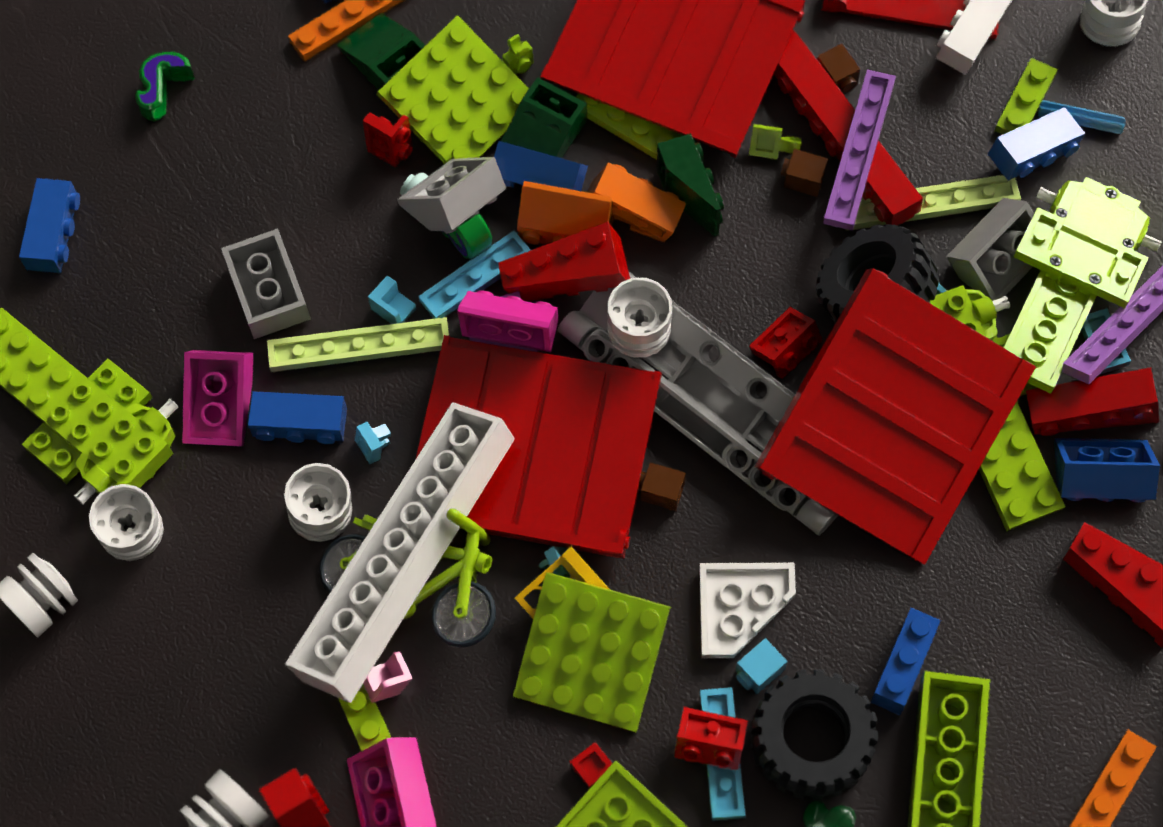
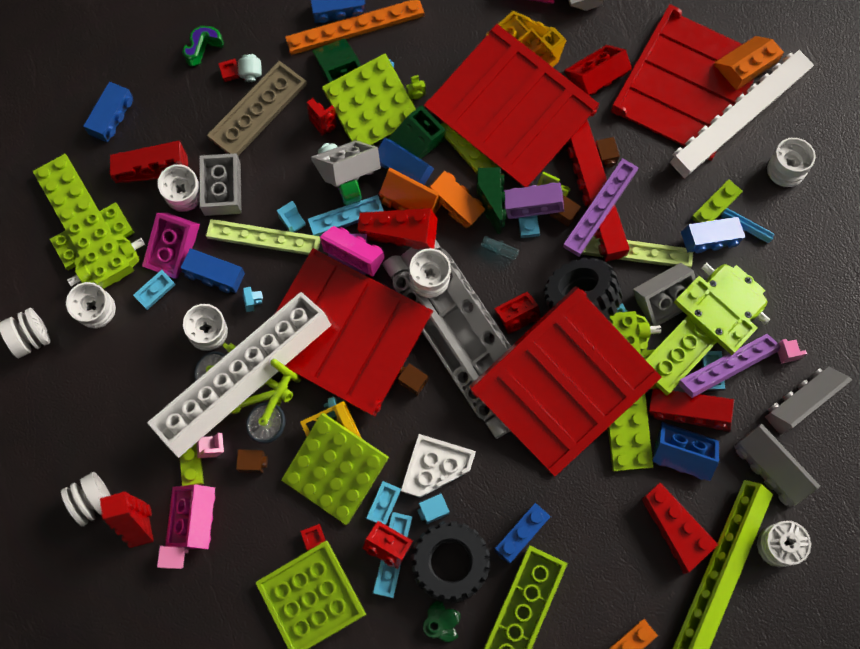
camera: 15 degrees right, 5 degrees up
(142, 283) = (146, 162): none -> red wedge
(199, 292) = (177, 179): none -> white wheel
(215, 471) = (154, 289): none -> medium azure plate
(218, 109) = (229, 70): none -> red plate
(249, 97) = (249, 68): none -> light aqua head
(281, 156) = (257, 109): none -> dark tan plate
(458, 681) = (251, 461): none -> reddish brown brick
(682, 681) = (384, 503): none -> medium azure plate
(726, 255) = (500, 248): none -> clear light blue axle
(752, 200) = (529, 226): none -> medium azure plate
(757, 169) = (534, 200): none -> medium lavender brick

